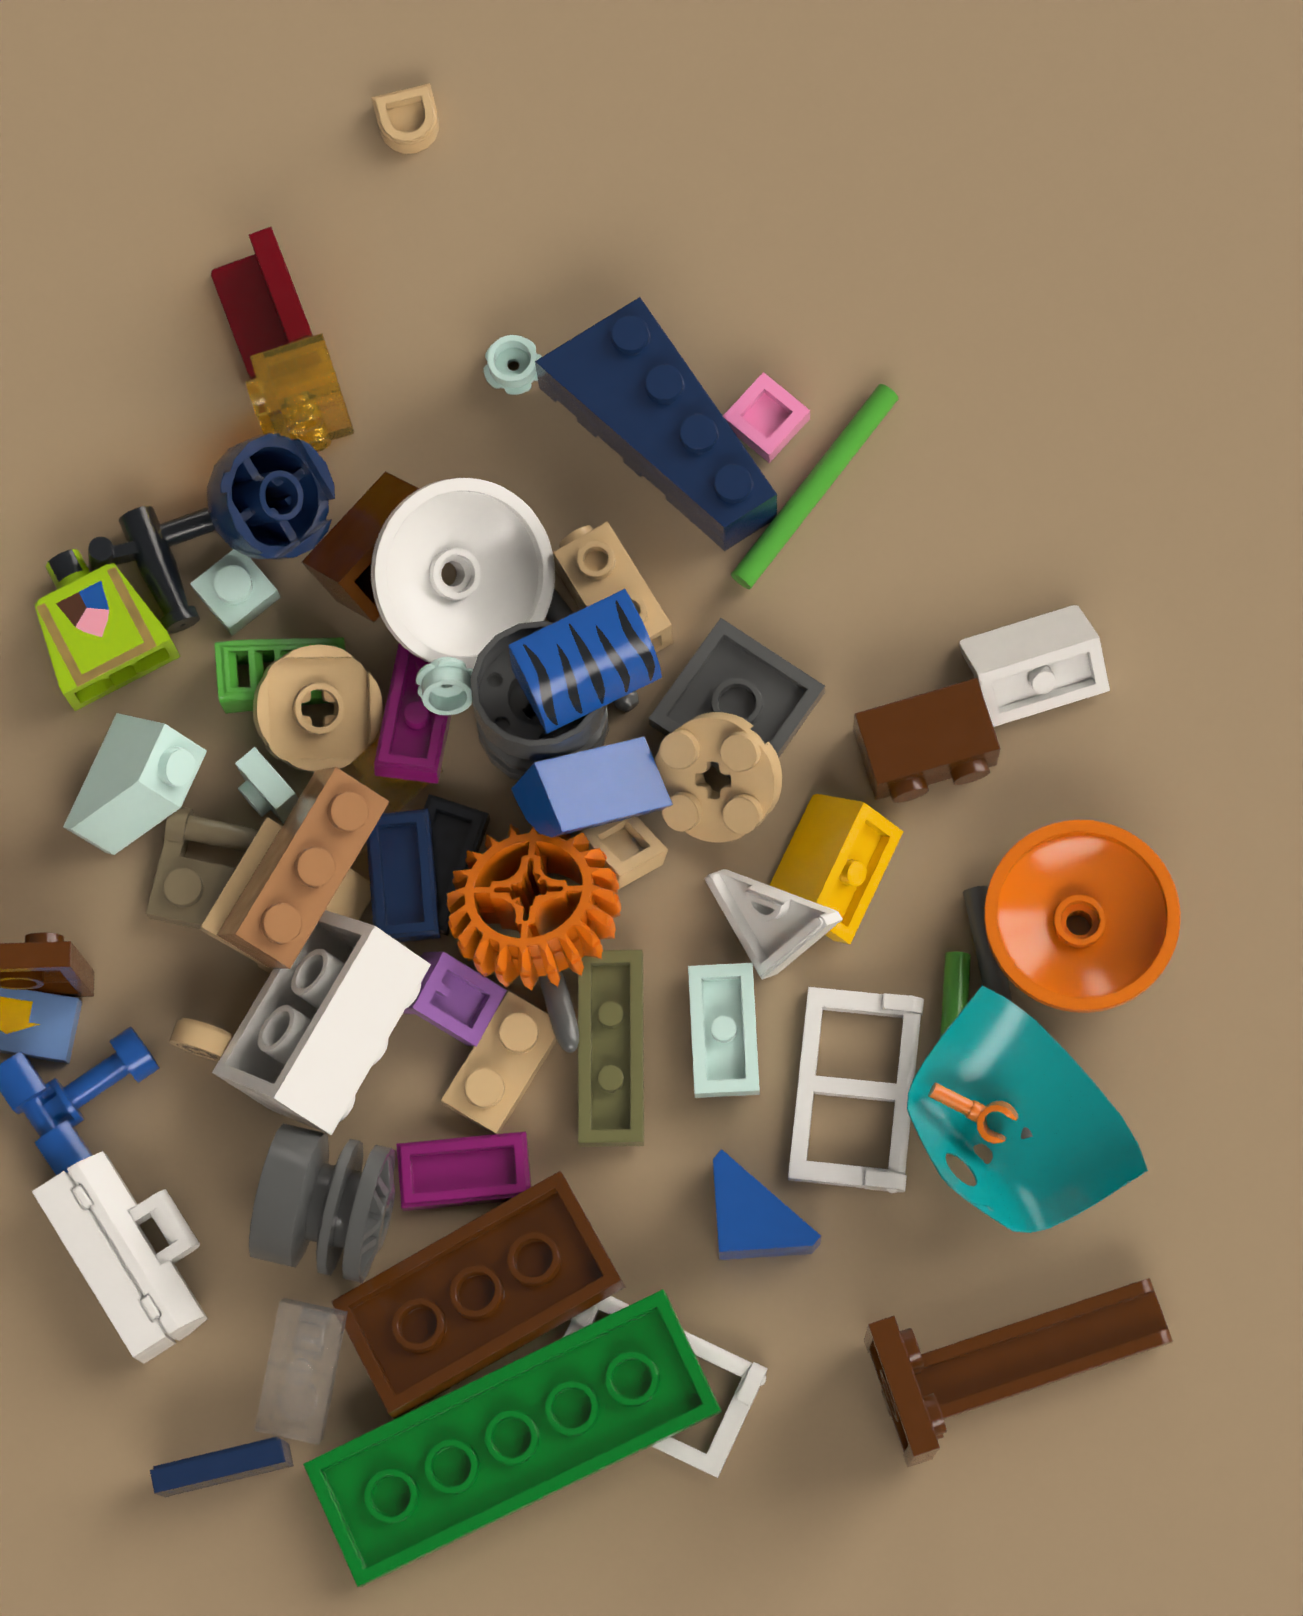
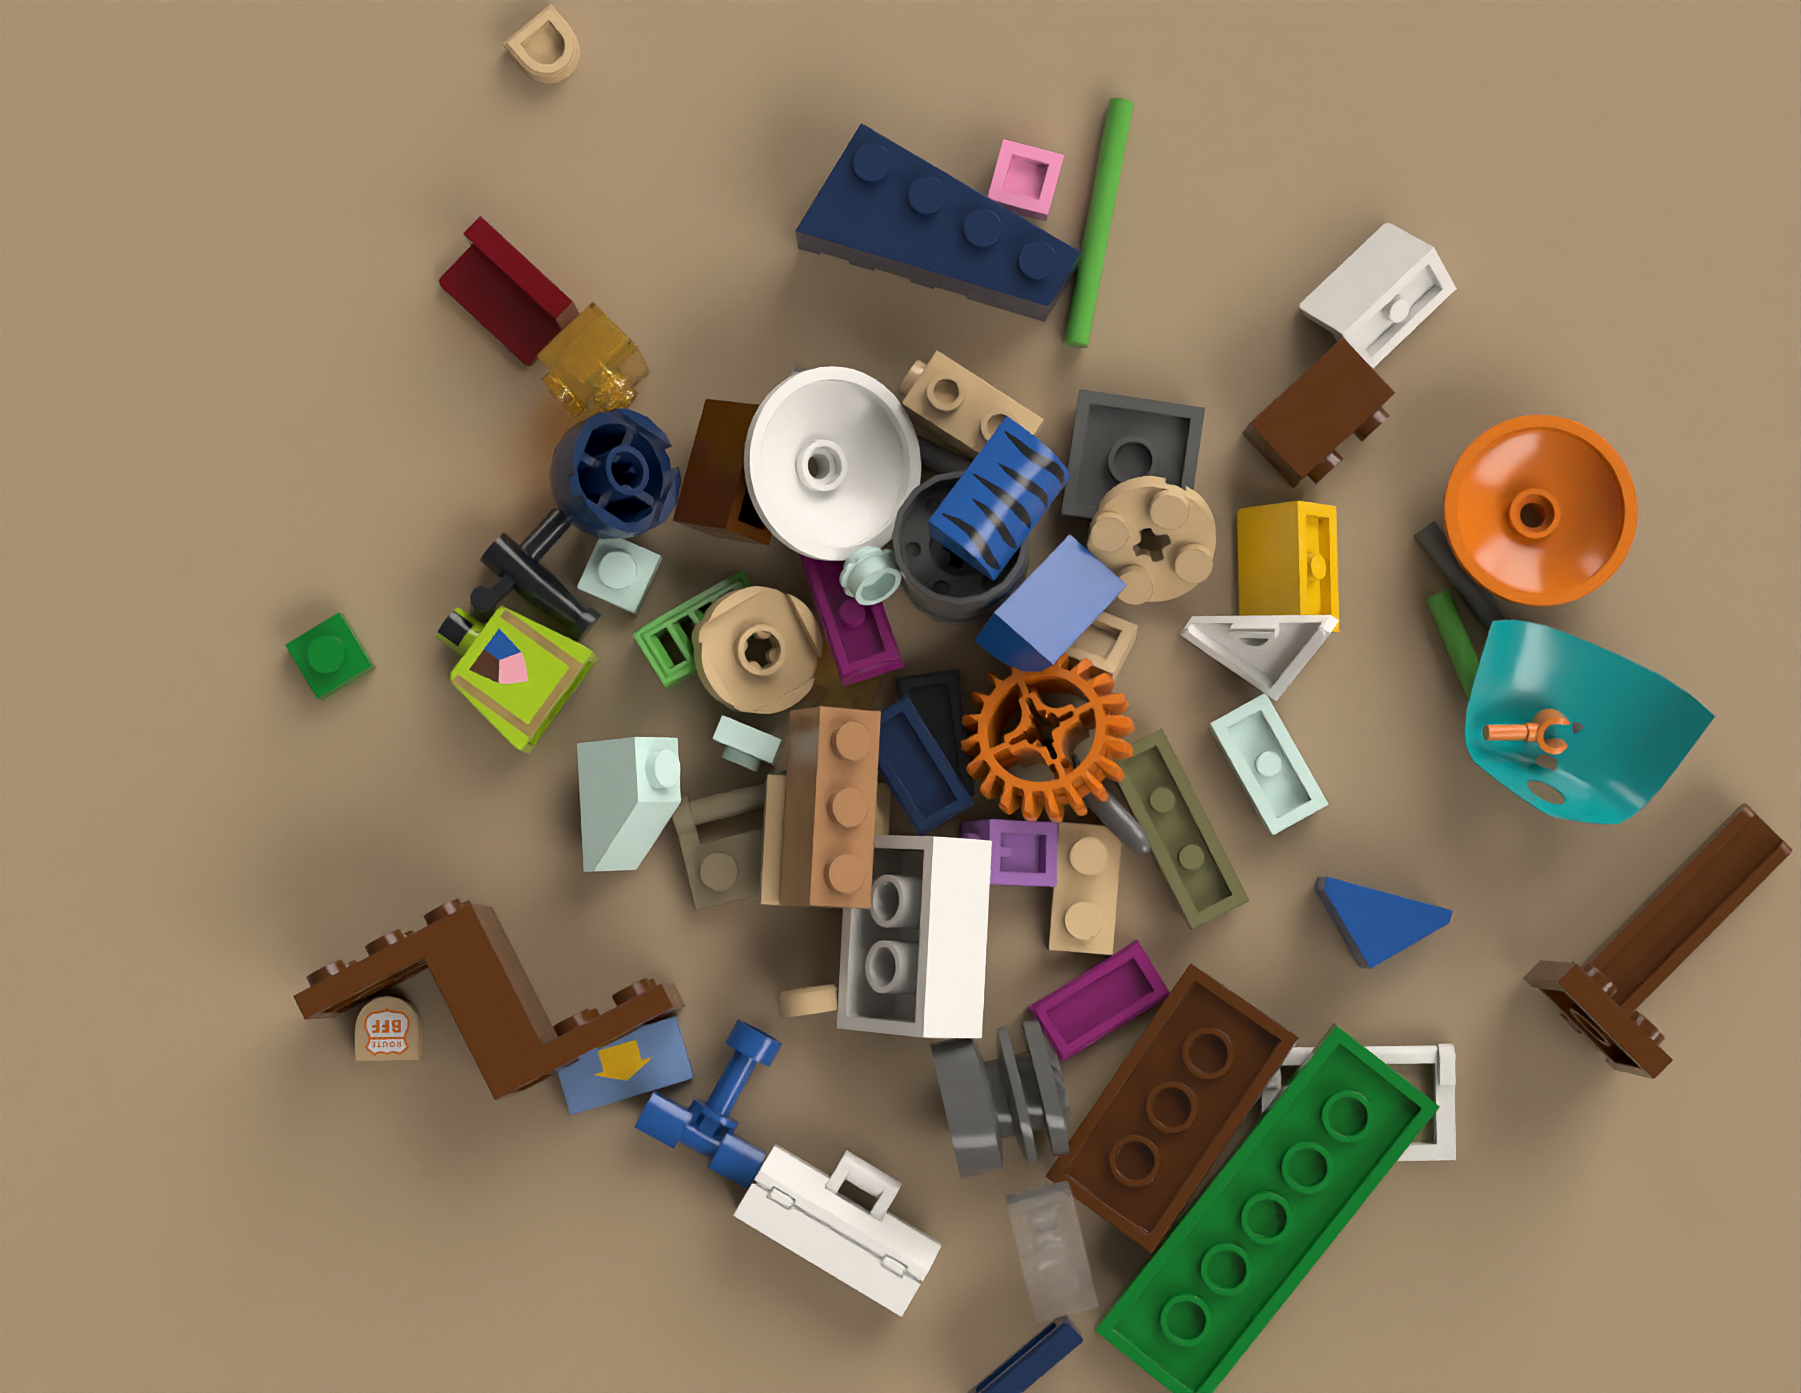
camera: 30 degrees left, 10 degrees up
(503, 352) = (759, 224): light aqua plate -> none
(890, 1005) = (1479, 821): white window -> none

